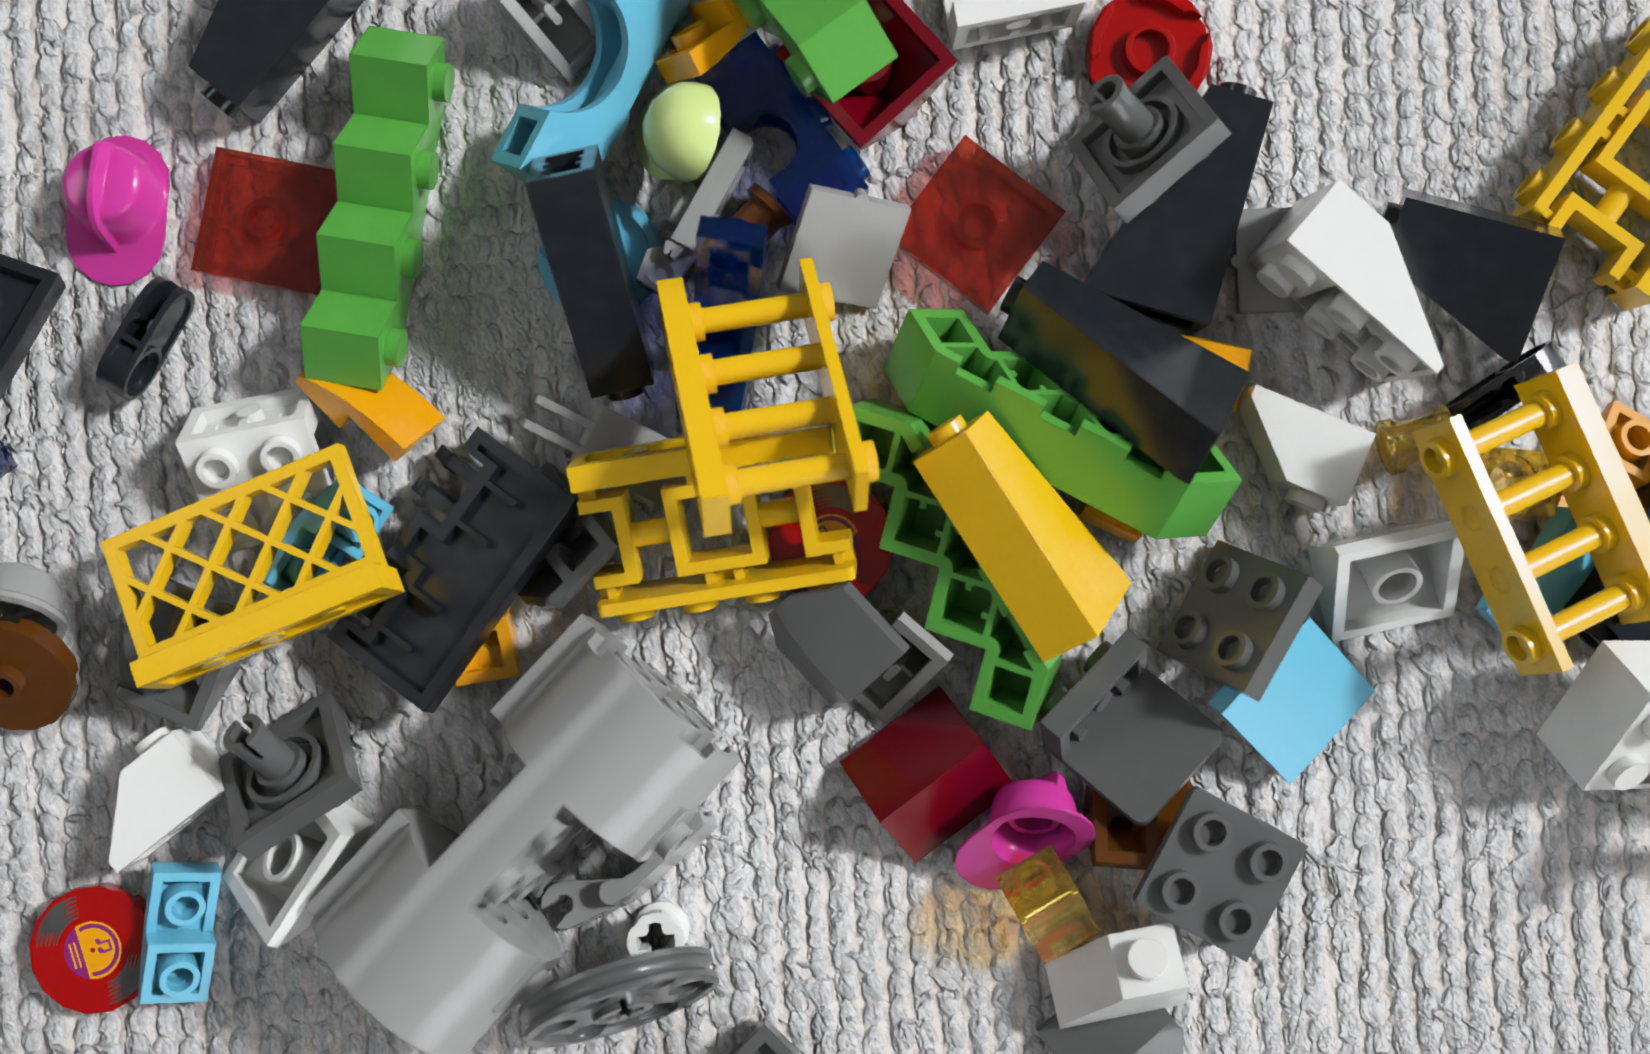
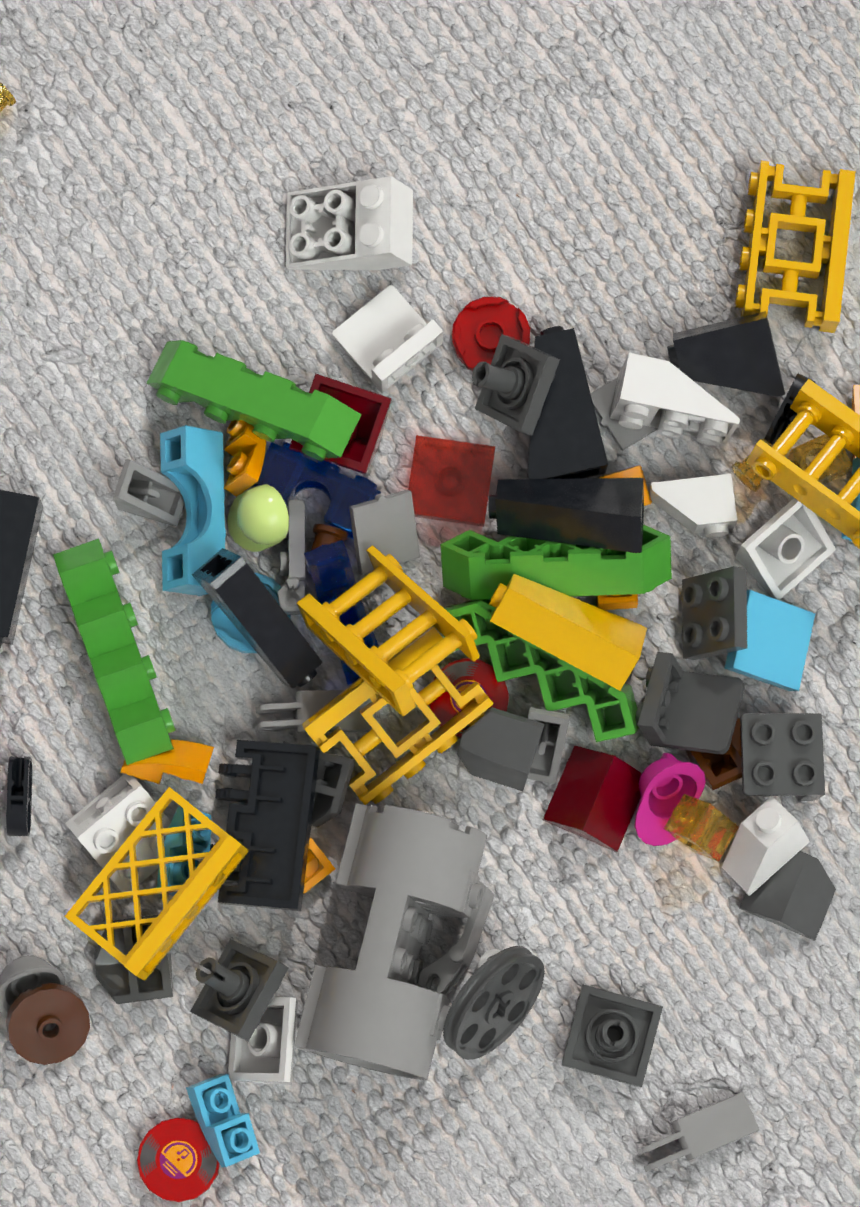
camera: 30 degrees left, 10 degrees down
(163, 793) = (172, 1043): white slope -> none
(264, 221) = (51, 695): clear red plate -> none

